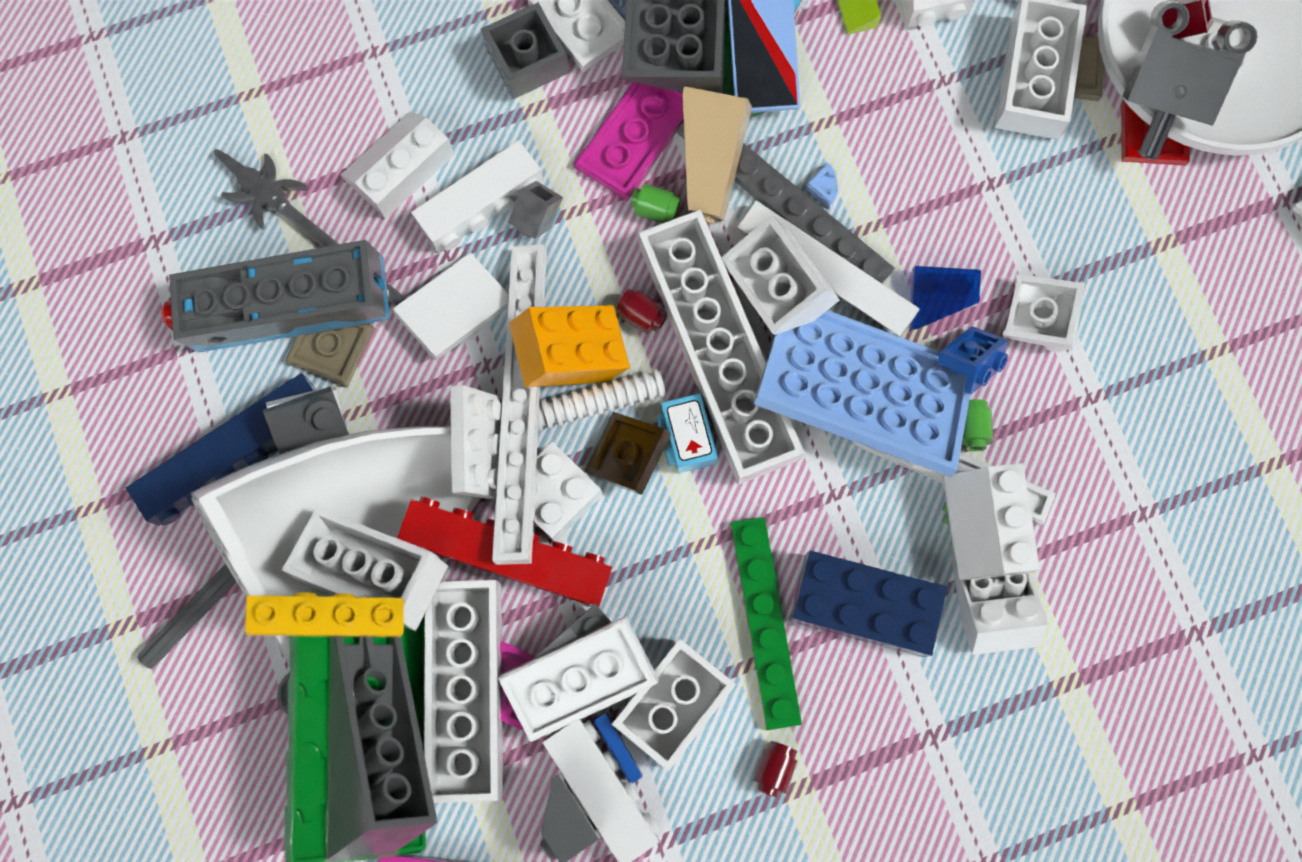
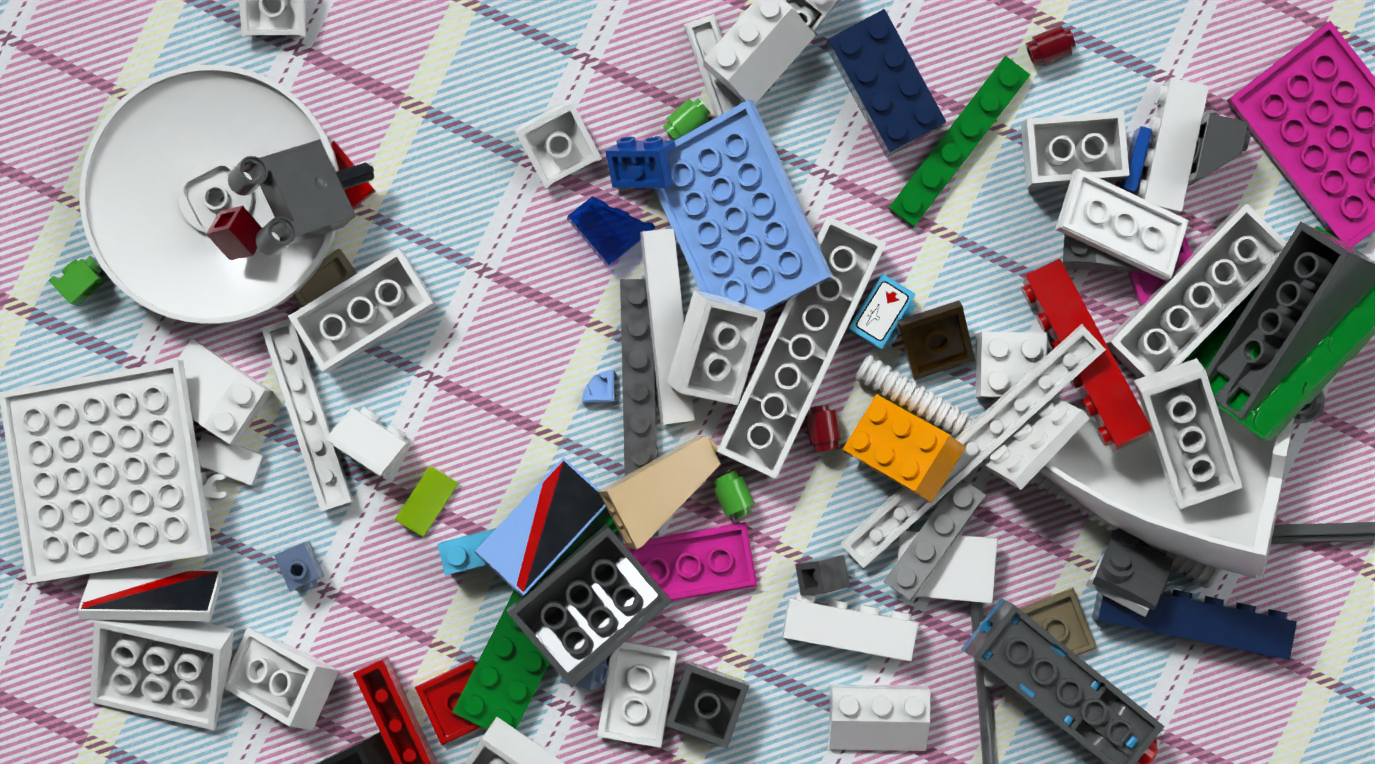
camera: 135 degrees left, 10 degrees up
(324, 616) = (1251, 411): yellow bracket -> none
(480, 312) = (934, 539): none -> light grey plate

